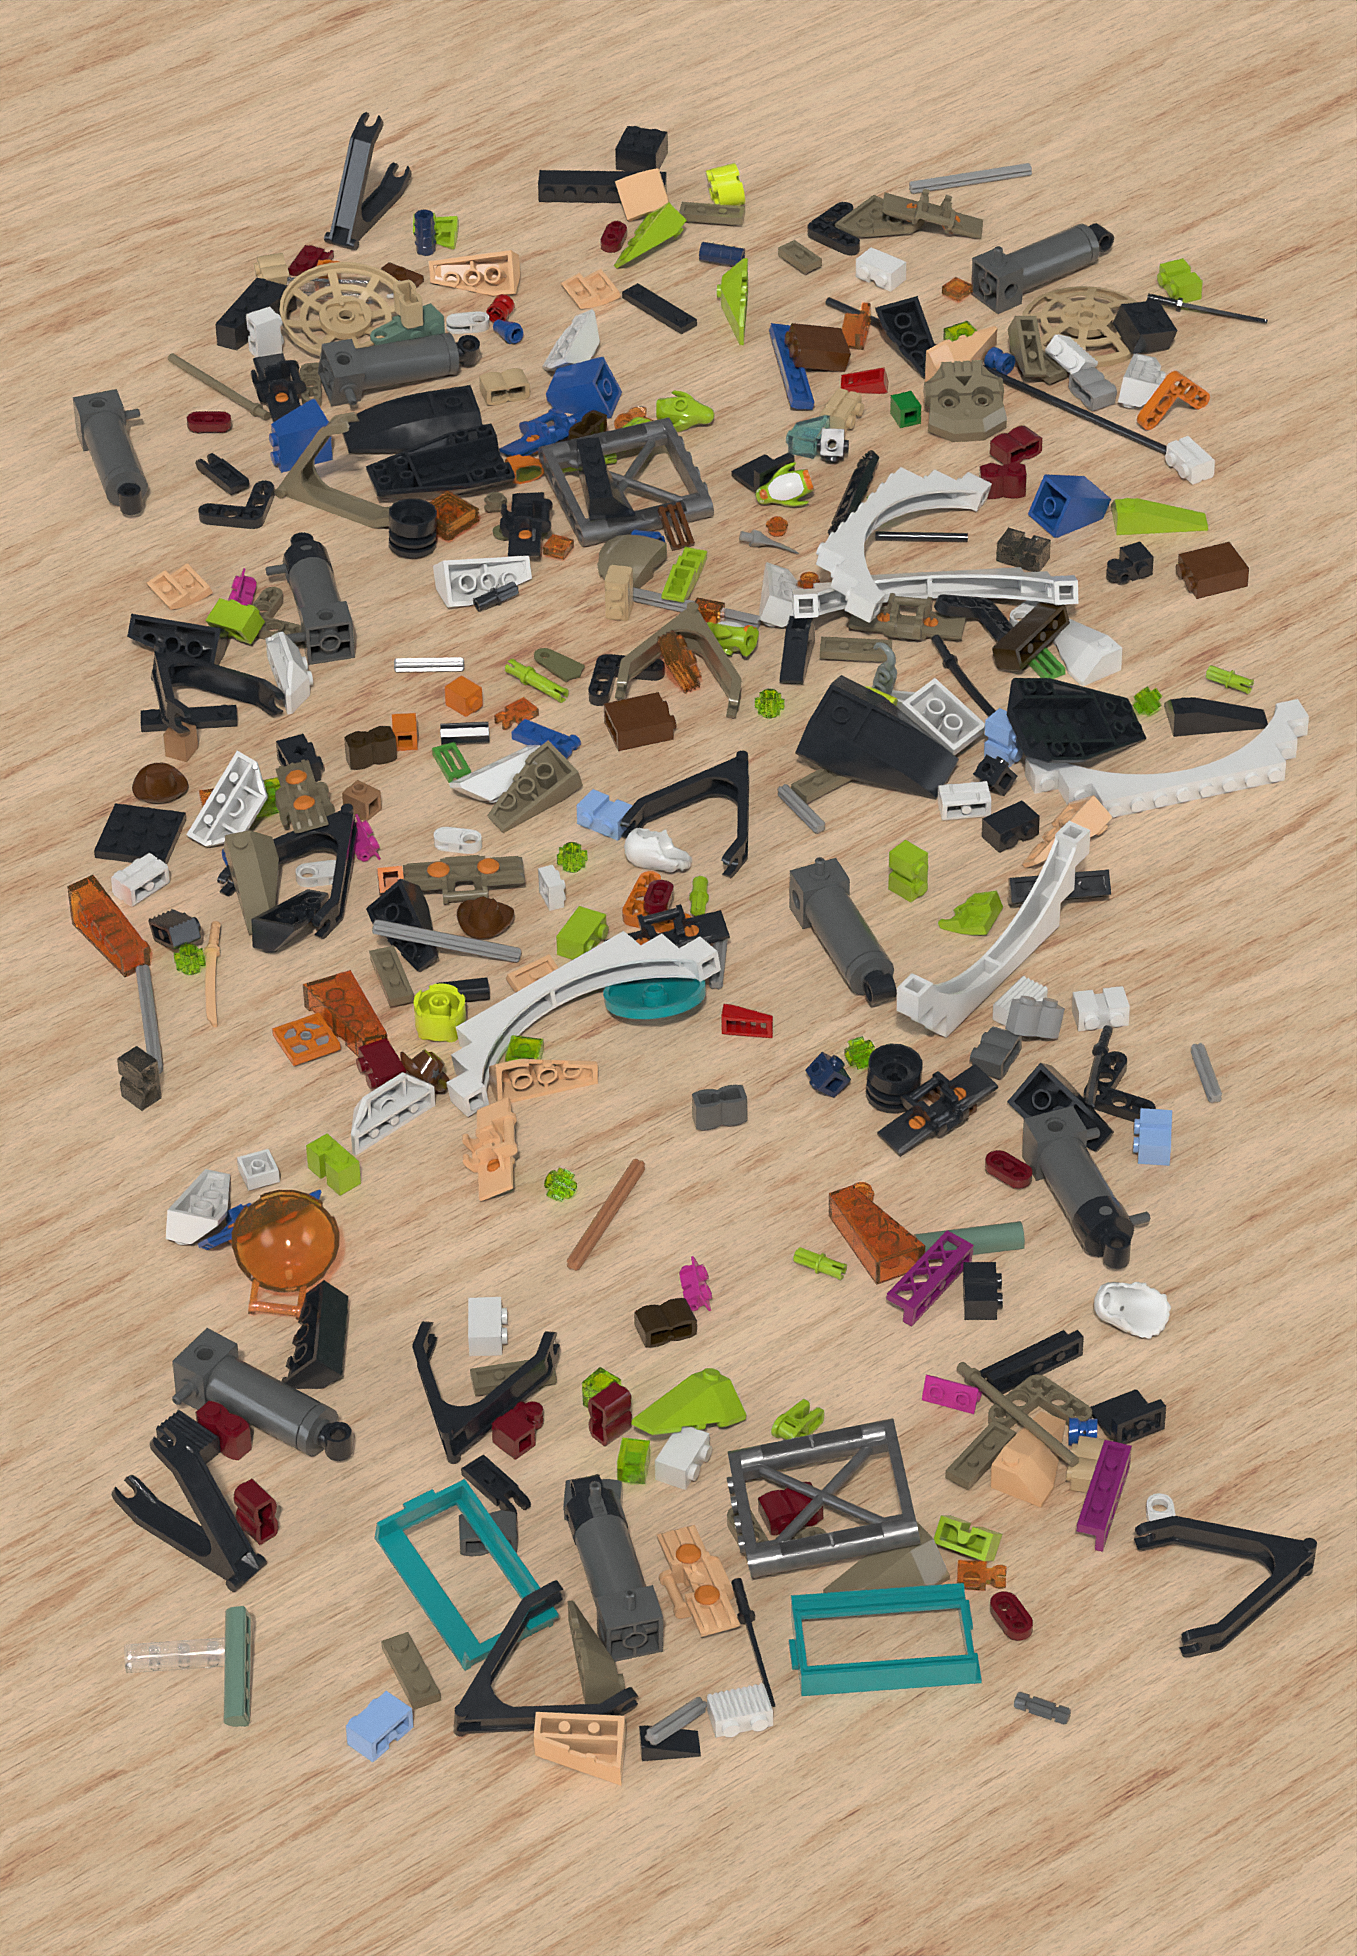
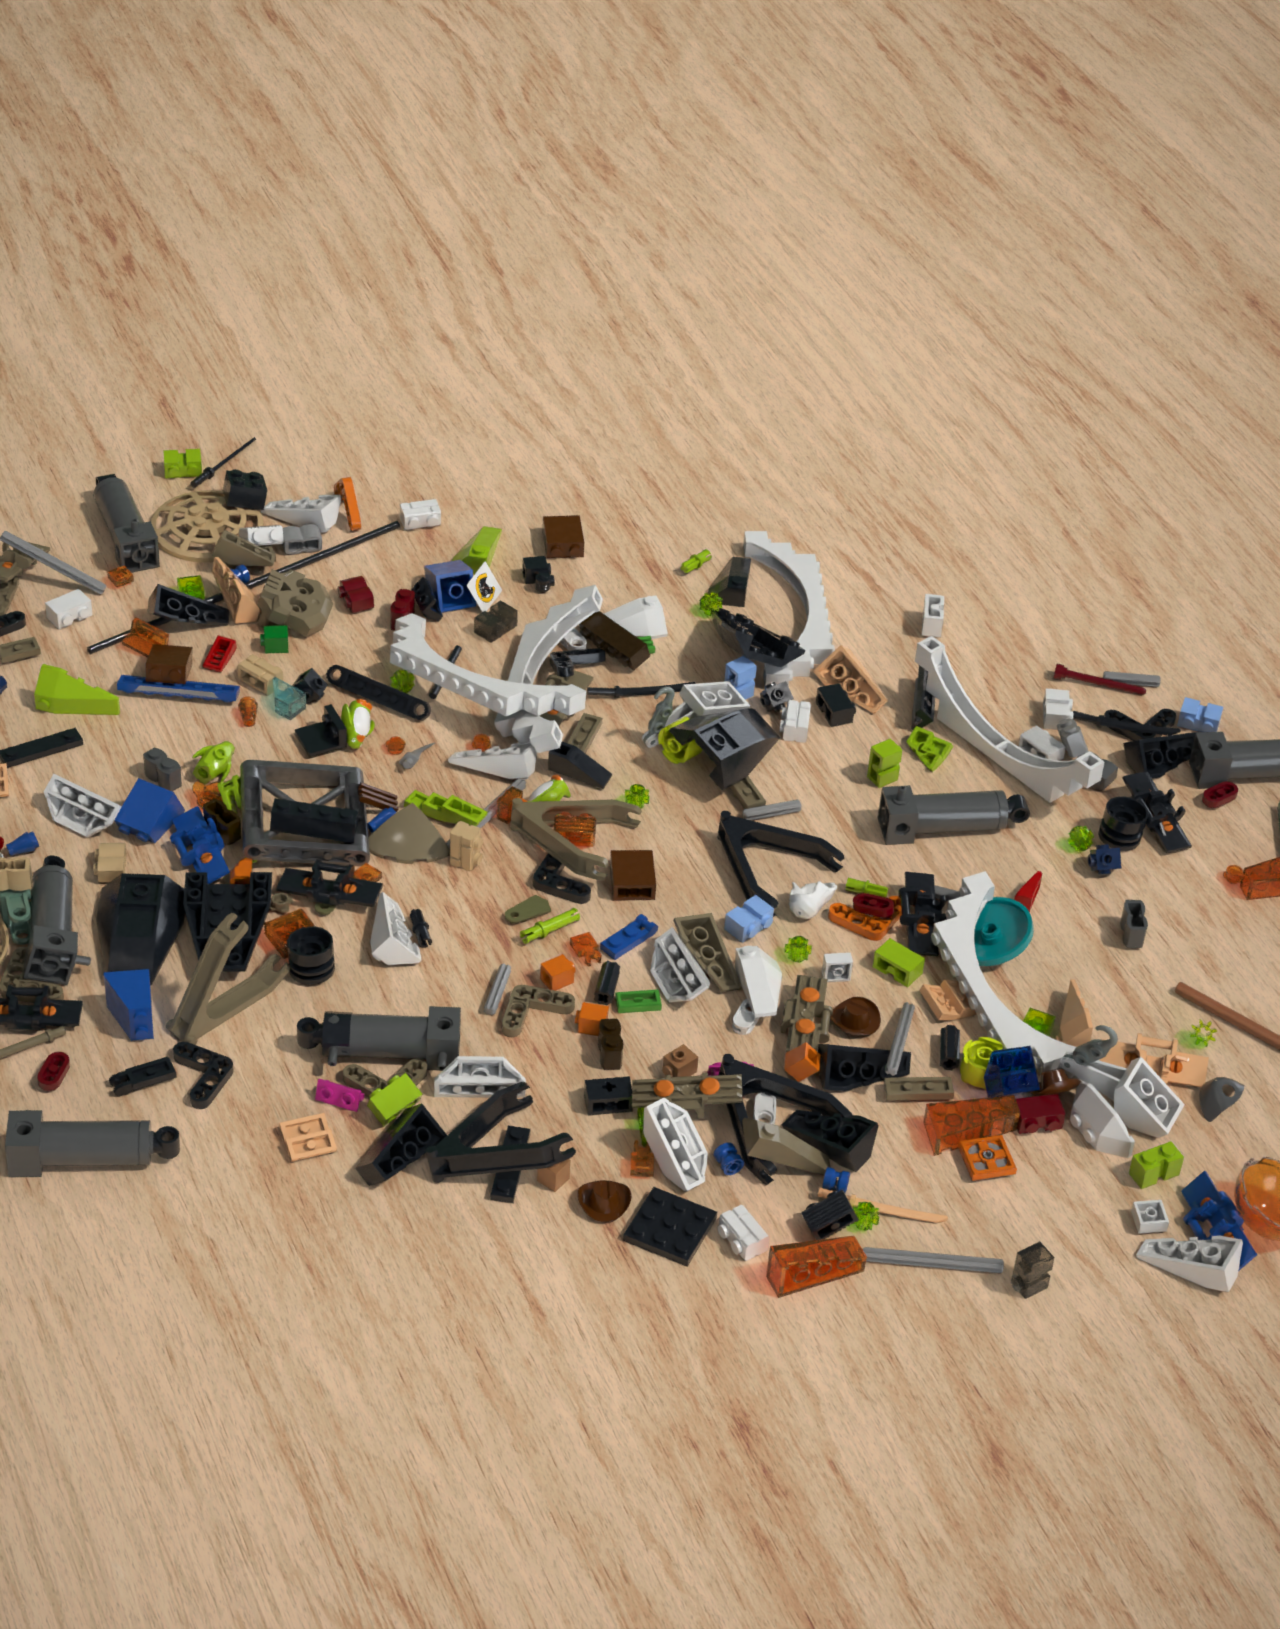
camera: 80 degrees left, 0 degrees up
(232, 932) = (831, 1178): none -> blue wheel
(388, 684) = (525, 1002): none -> dark tan beam
(414, 1023) = (1011, 1072): none -> clear blue slope
(424, 1122) = (1137, 1091): none -> white slope
(482, 1212) = (1213, 1099): none -> dark grey piece
(513, 829) = (760, 979): none -> white wedge
(653, 383) = (162, 769): none -> dark grey brick
(779, 418) = (248, 710): none -> clear orange cone
(931, 232) = (53, 562): none -> light grey axle
(1021, 494) = (426, 600): none -> black bracket
(1072, 526) = (484, 587): none -> sticker
(1183, 1006) = (1062, 672): none -> dark red piece
(1223, 876) = (933, 615): none -> white brick

